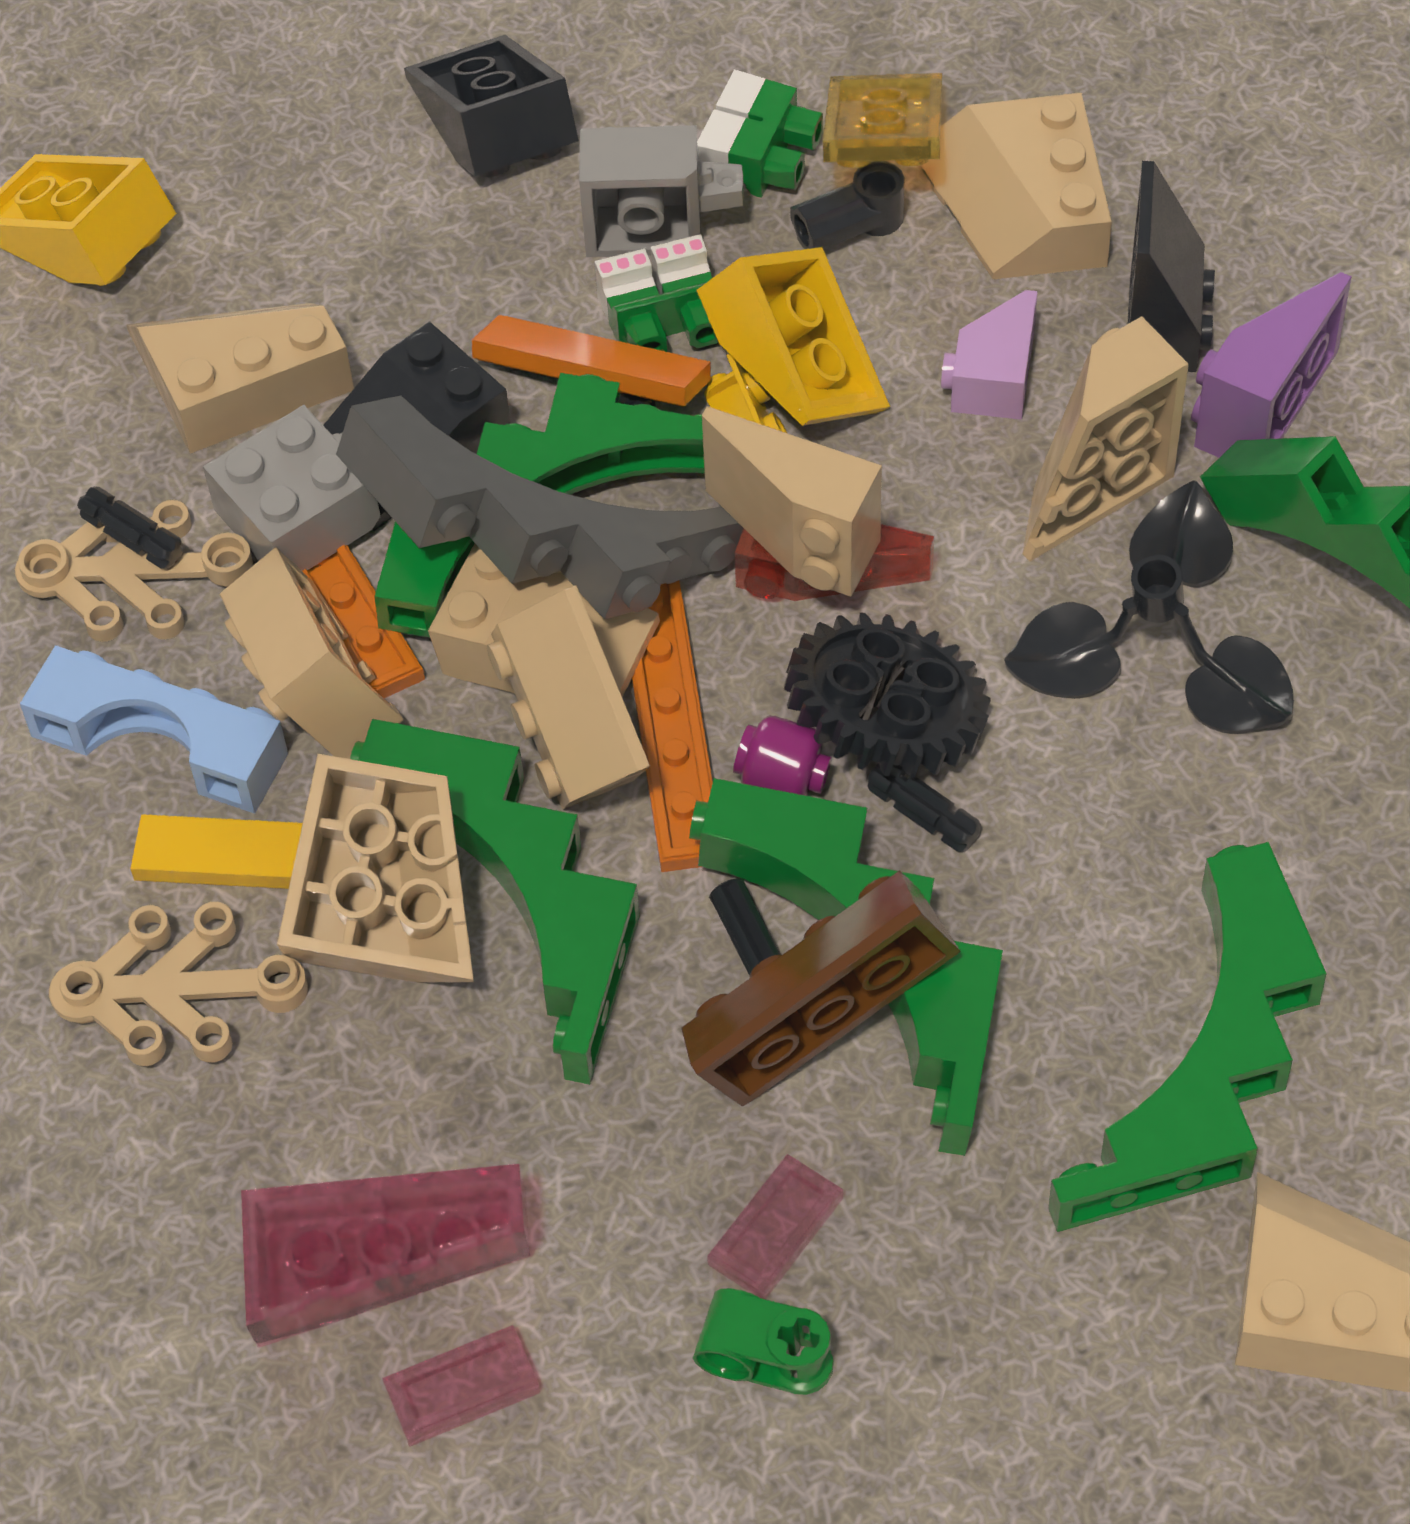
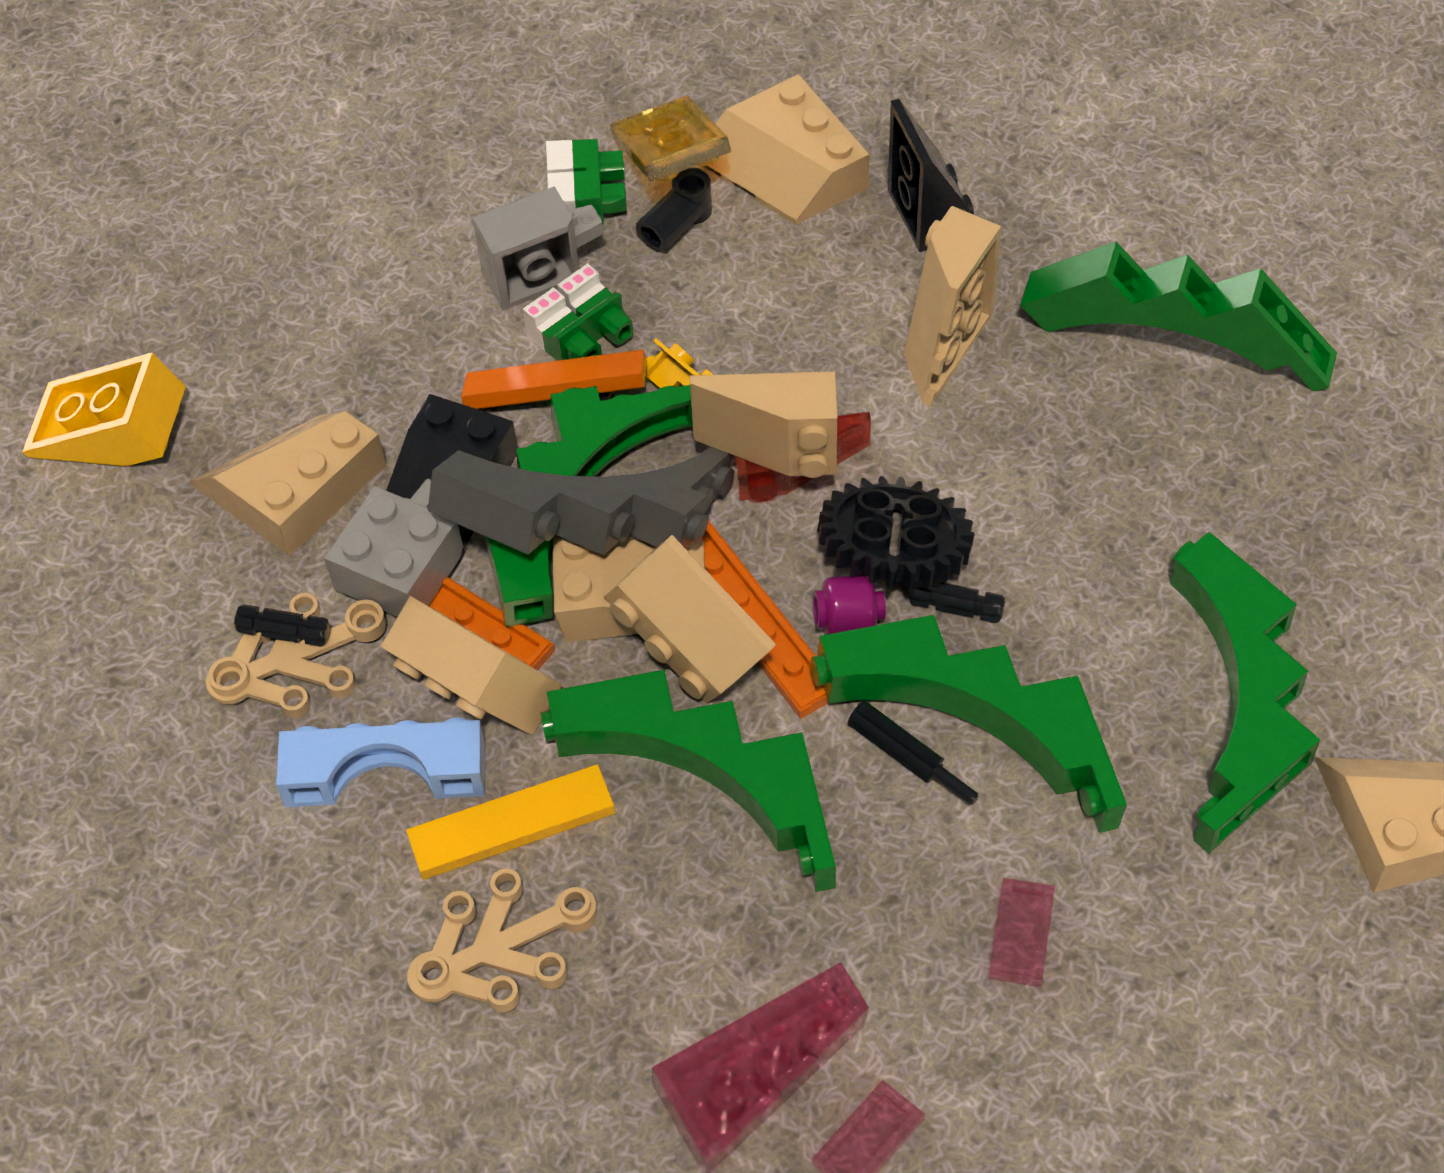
camera: 25 degrees left, 0 degrees up
(378, 876) = (619, 800): tan wedge -> none
(495, 105) = (380, 225): black slope -> none
(756, 1341) = (1059, 1015): green piece -> none
(794, 334) = (692, 309): yellow slope -> none
(817, 989) = (974, 750): reddish brown slope -> none
(993, 360) = (836, 279): lavender slope -> none
(1175, 545) = (1025, 354): black plant -> none
(1269, 368) = (1029, 218): medium lavender slope -> none

